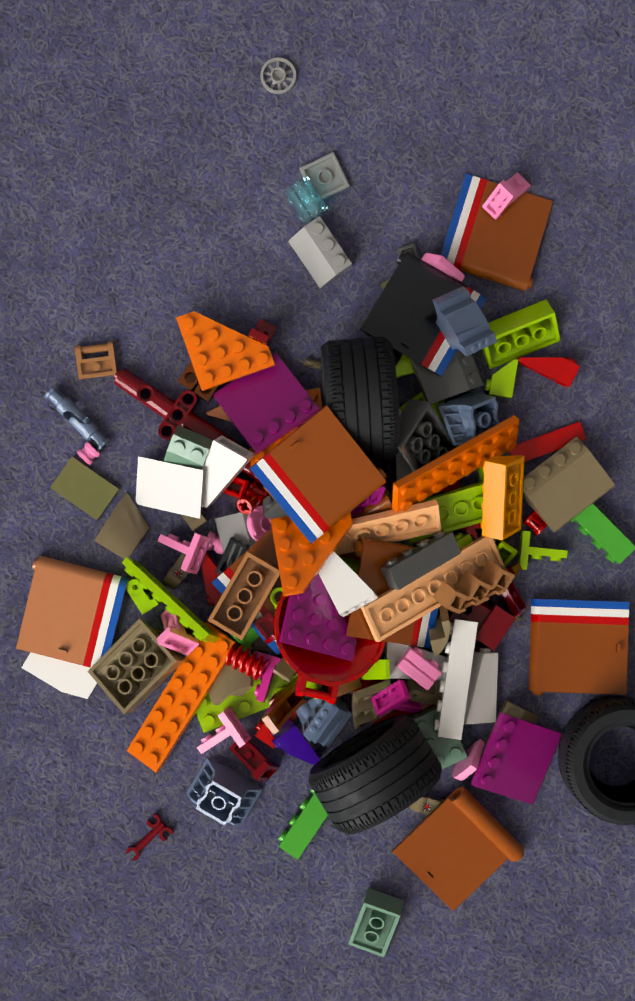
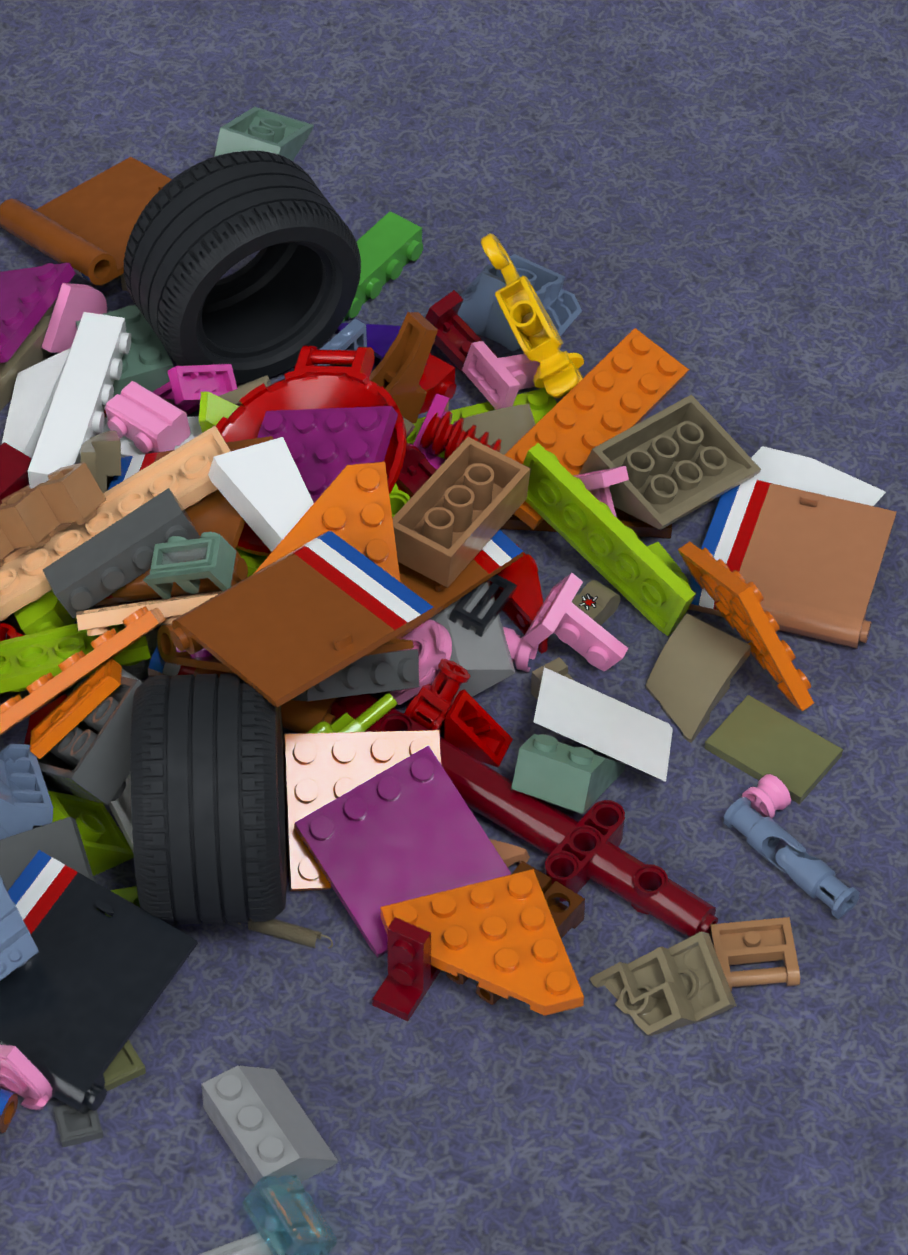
camera: 175 degrees right, 40 degrees down
(93, 544) = (743, 611): none -> orange plate
(131, 341) = (670, 985): none -> dark tan slope
(158, 828) = (640, 271): dark red bar -> none
(212, 755) = (533, 325): none -> yellow animal
(221, 467) = (489, 737): white slope -> none
(382, 540) = (189, 561): none -> sand green window
(431, 453) = (75, 708): none -> orange tile

